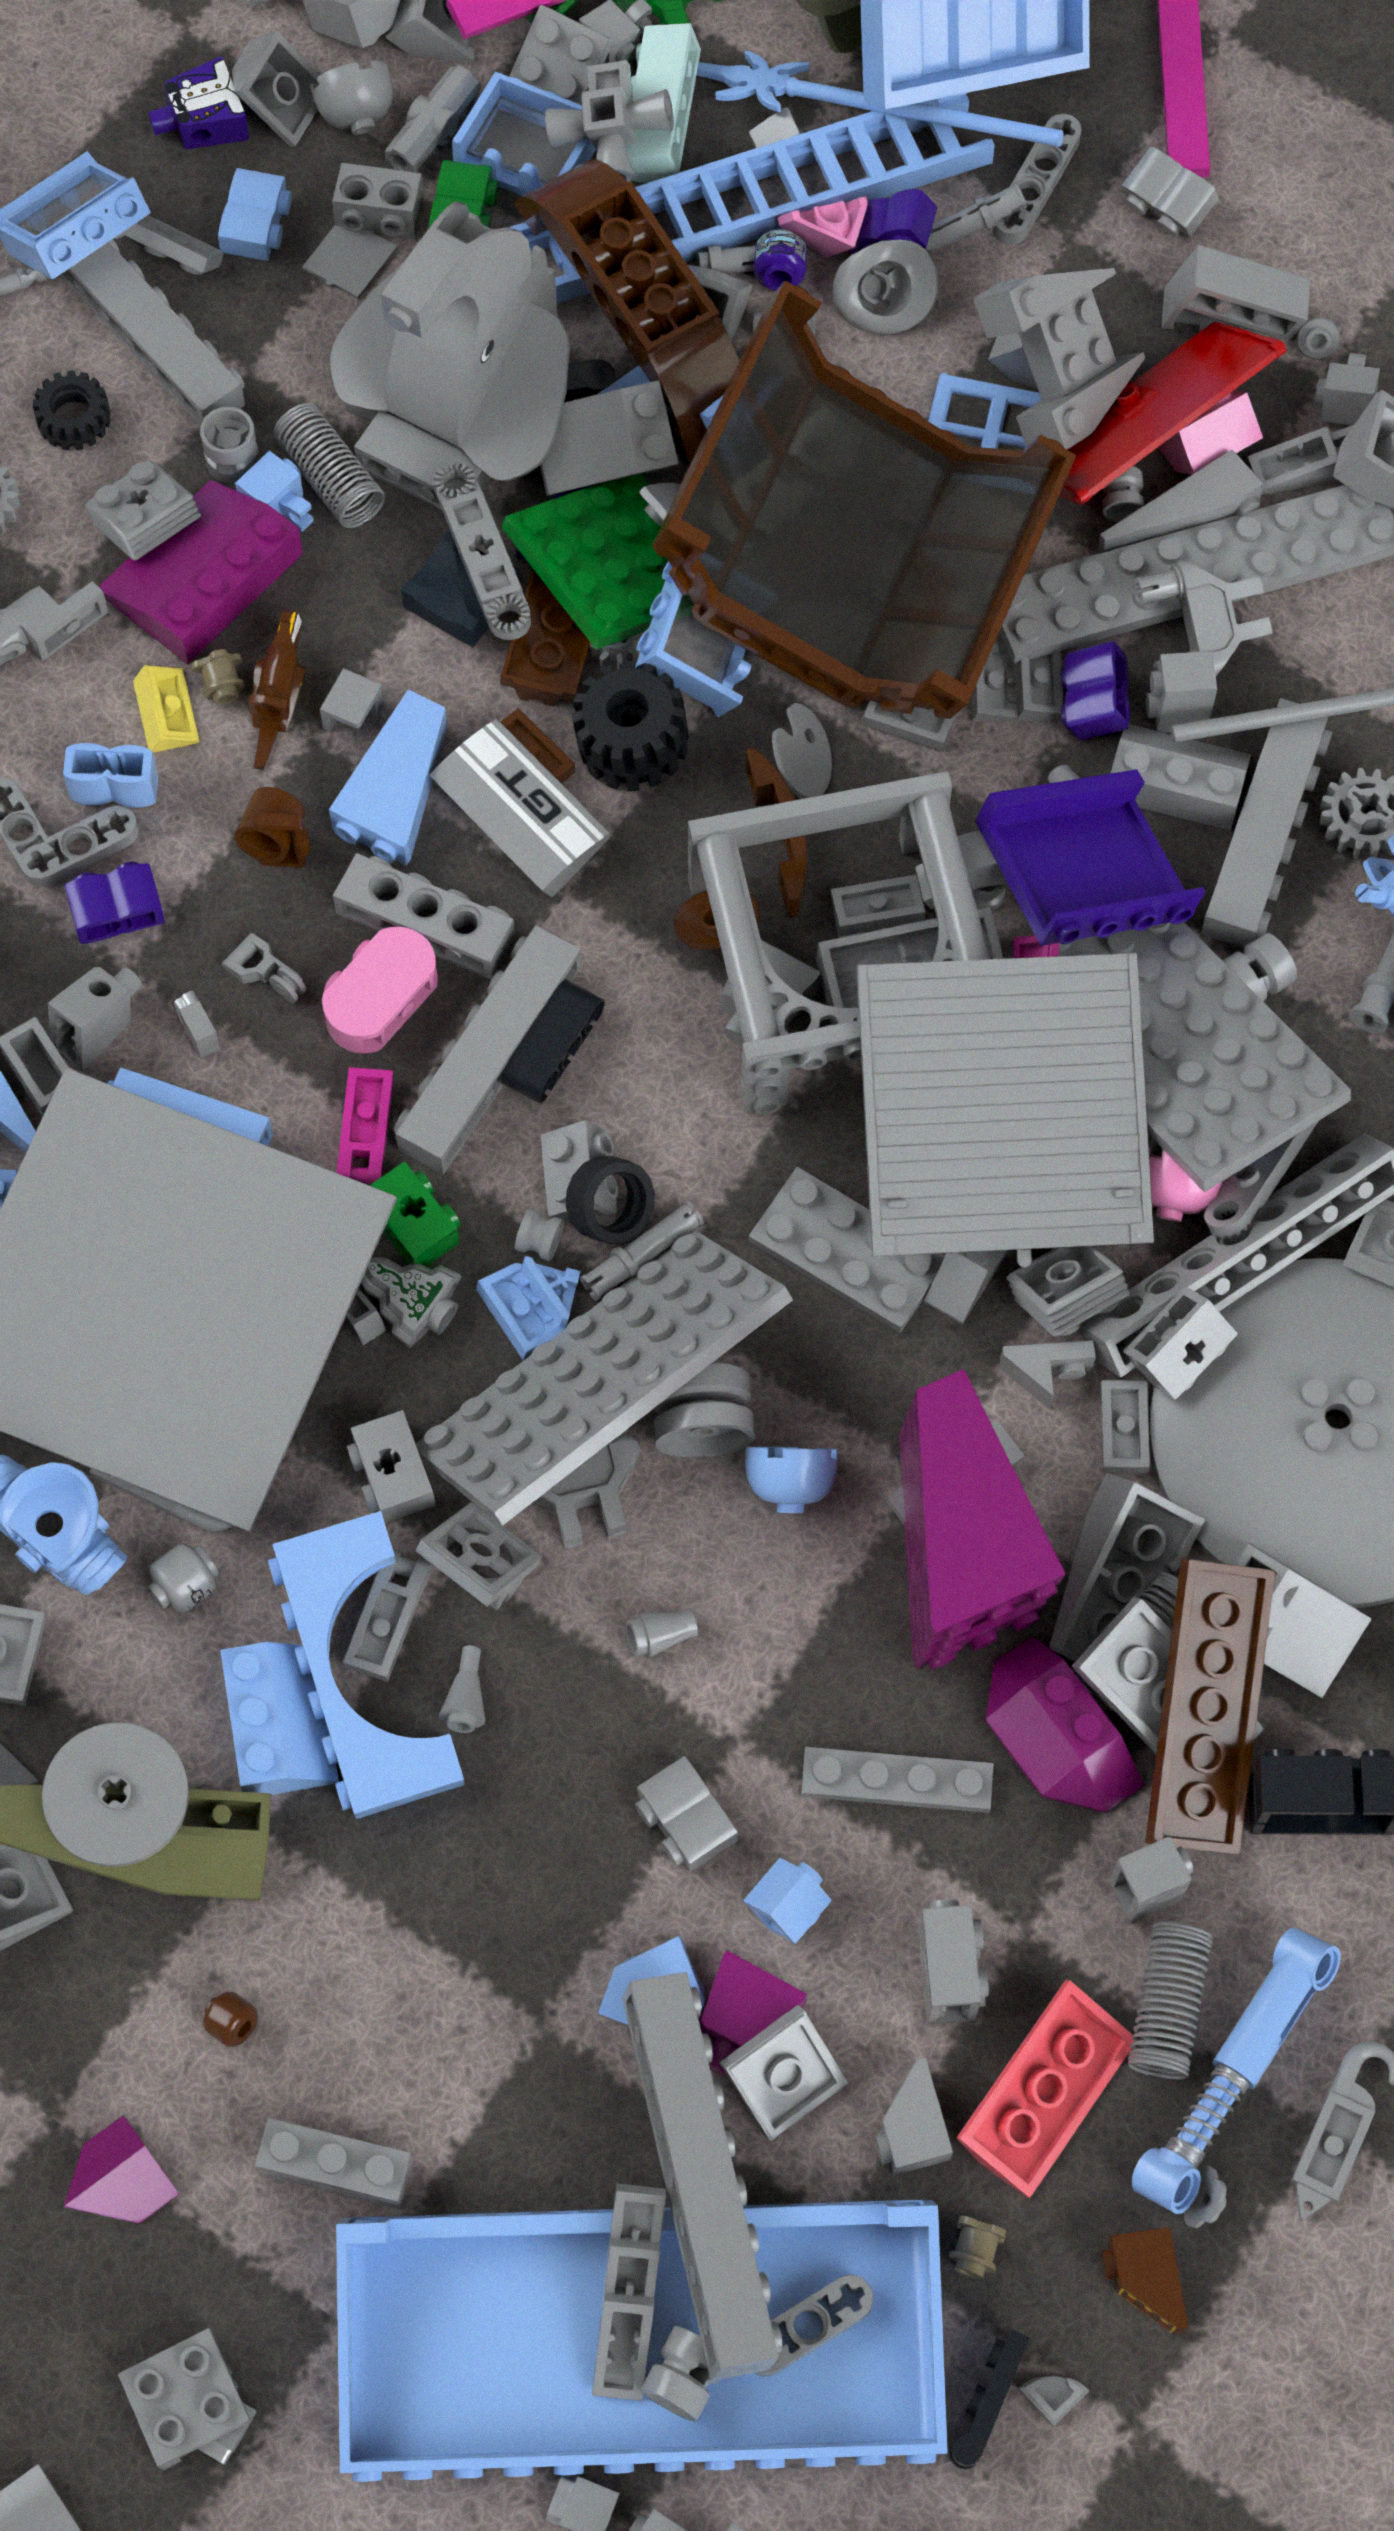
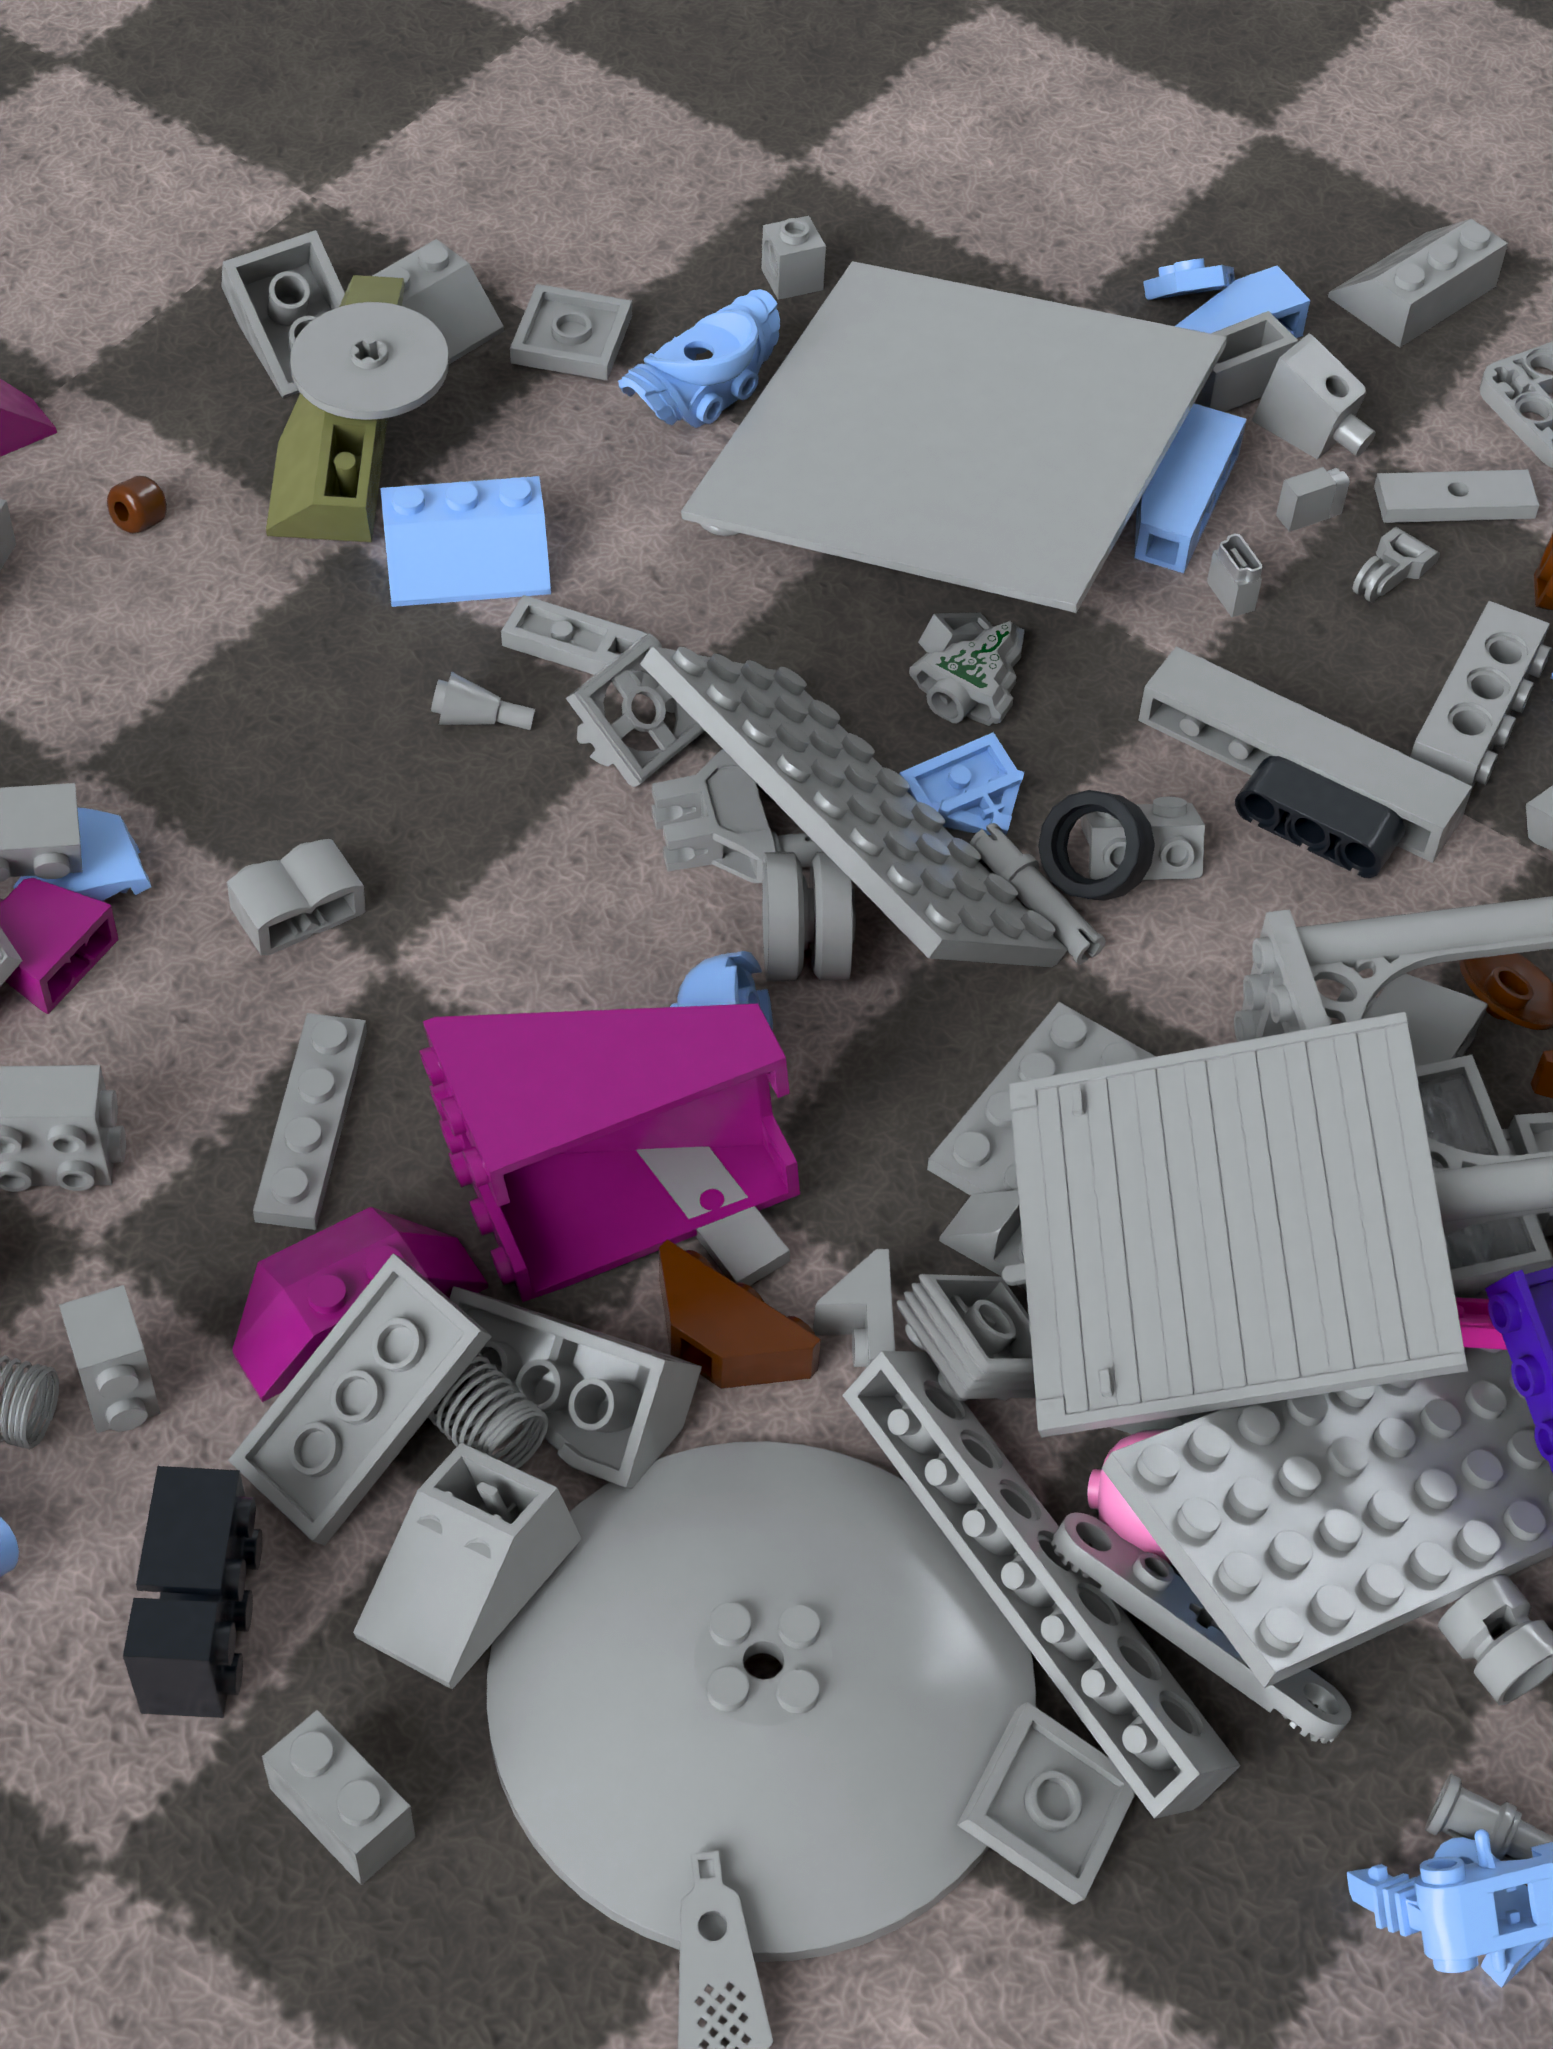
camera: 90 degrees right, 15 degrees down
(114, 902) = (1461, 429): dark purple brick -> none
(182, 1578) = (638, 474): light grey head -> none
(187, 892) = (1456, 496): none -> light grey tile
(296, 1088) = (1235, 575): none -> light grey piece
(365, 1123) = (1226, 642): dark pink plate -> none
(376, 1765) = (606, 556): light blue arch -> none
(379, 989) = (1372, 655): bright pink brick -> none
(384, 1442) = (765, 633): light grey brick -> none
(421, 1238) = (1075, 673): green brick -> none
(539, 1234) = (1052, 782): light grey wheel -> none
(658, 1631) = (531, 880): light grey cone -> none
(788, 1899) = (165, 980): light blue brick -> none
(1066, 1461) = (730, 1326): none -> reddish brown slope
(1124, 1426) = (776, 1409): light grey plate -> none
(1180, 1342) = (881, 1455): brick -> none
(1210, 1706) = (346, 1433): plate -> none

